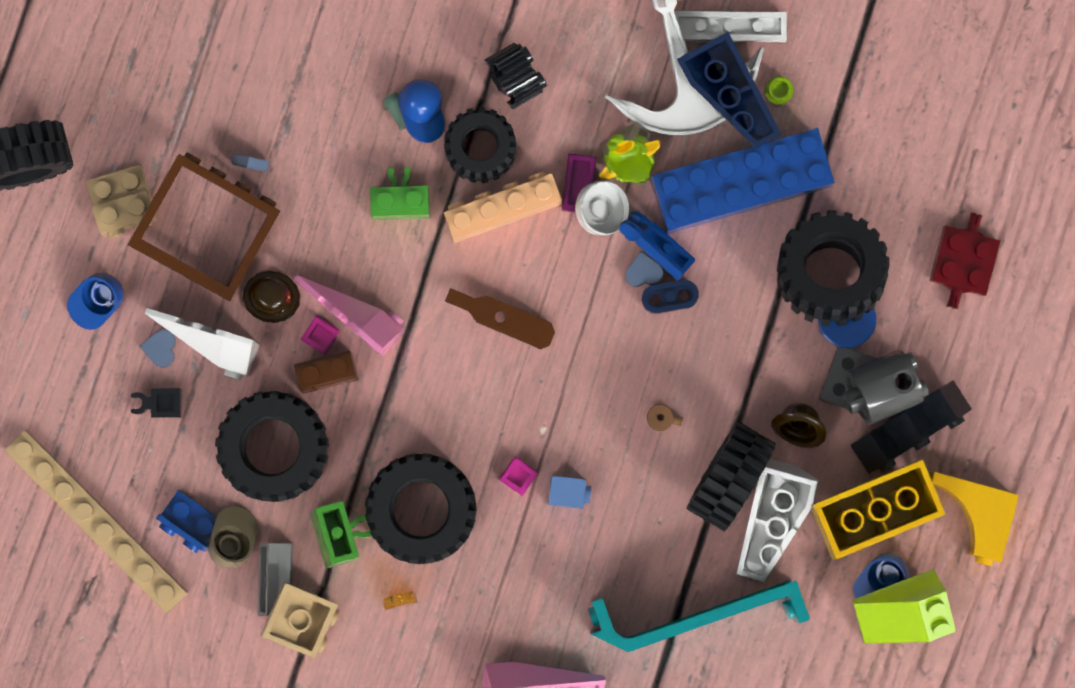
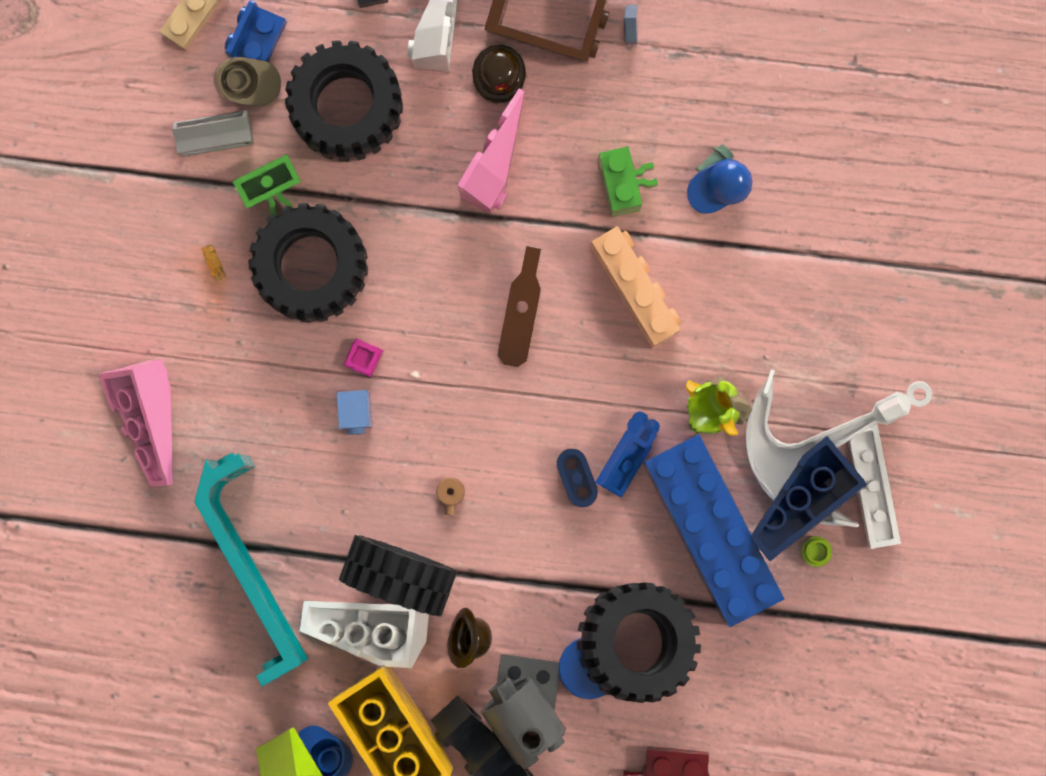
camera: 80 degrees right, 0 degrees up
(300, 620) = (173, 164): tan plate -> none
(320, 335) = (469, 130): dark pink tile -> none
(326, 372) = (431, 141): reddish brown brick -> none
(474, 121) = (702, 227): black tyre -> none
(515, 75) = (775, 272): black brick -> none
(579, 173) = (676, 362): magenta tile -> none
(601, 207) = (655, 389): white piece -> none
(643, 271) = (598, 446): sand blue tile -> none

